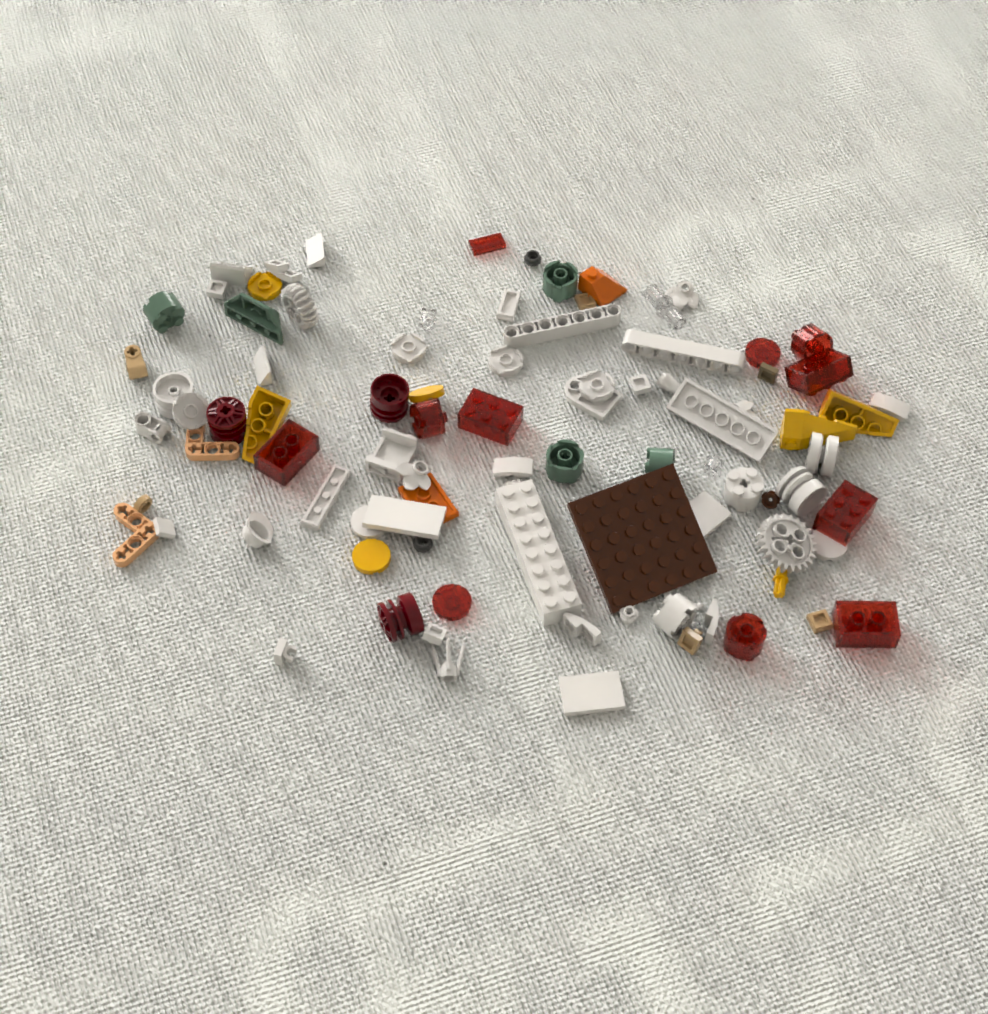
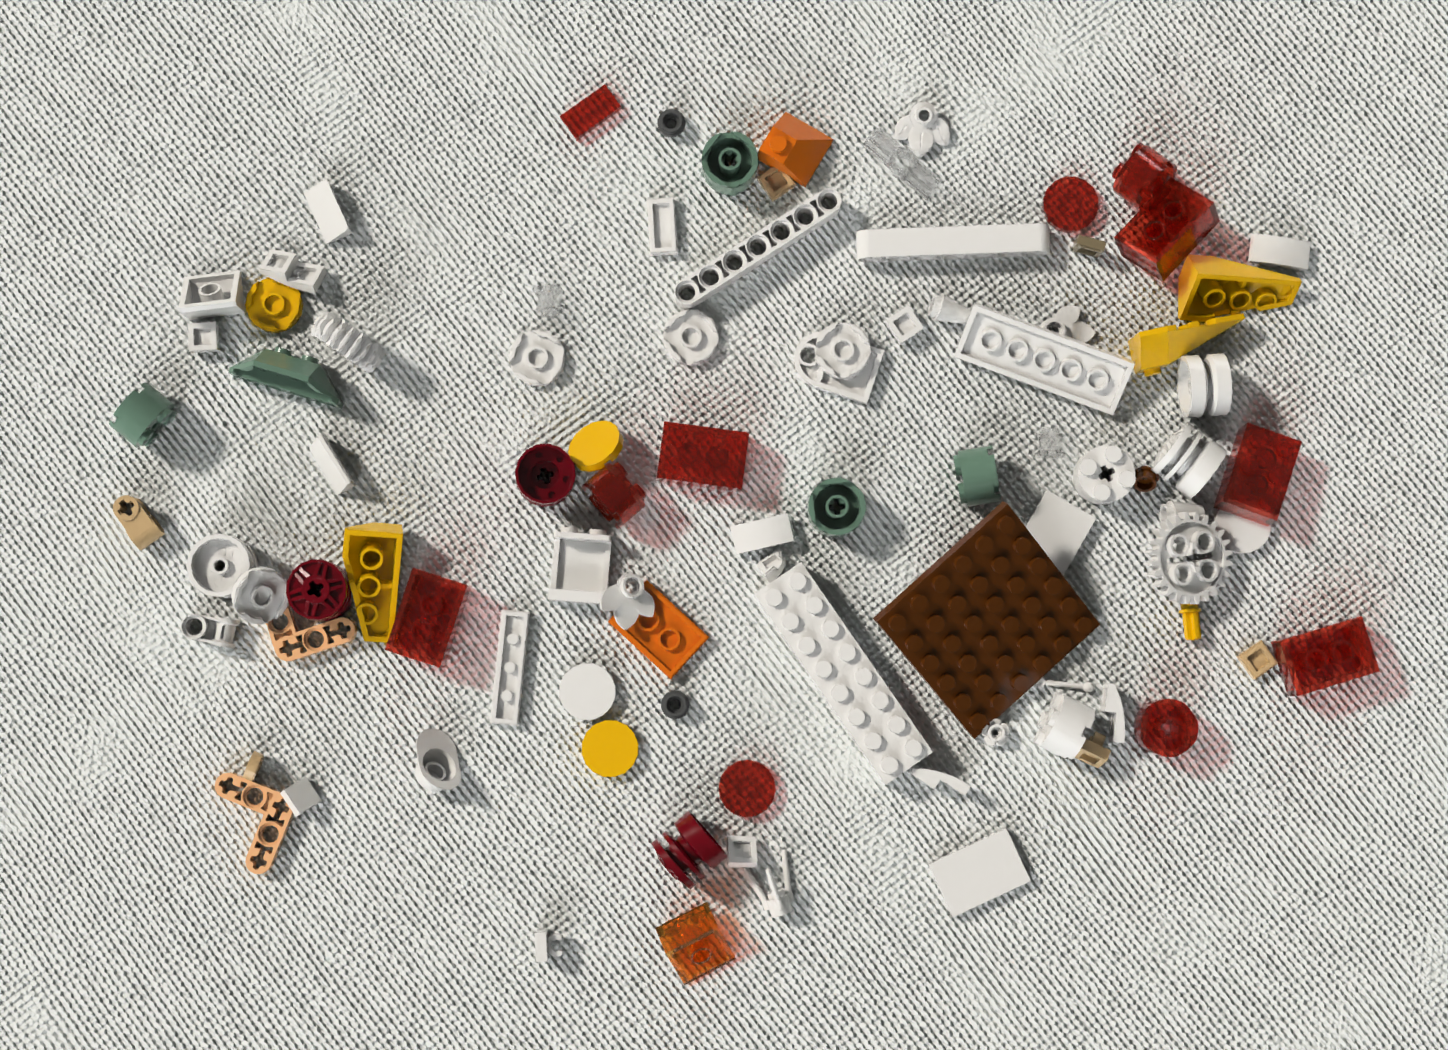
camera: 20 degrees left, 30 degrees up
(383, 679) = (695, 943): none -> clear orange slope
(404, 517) = (637, 676): white tile -> none

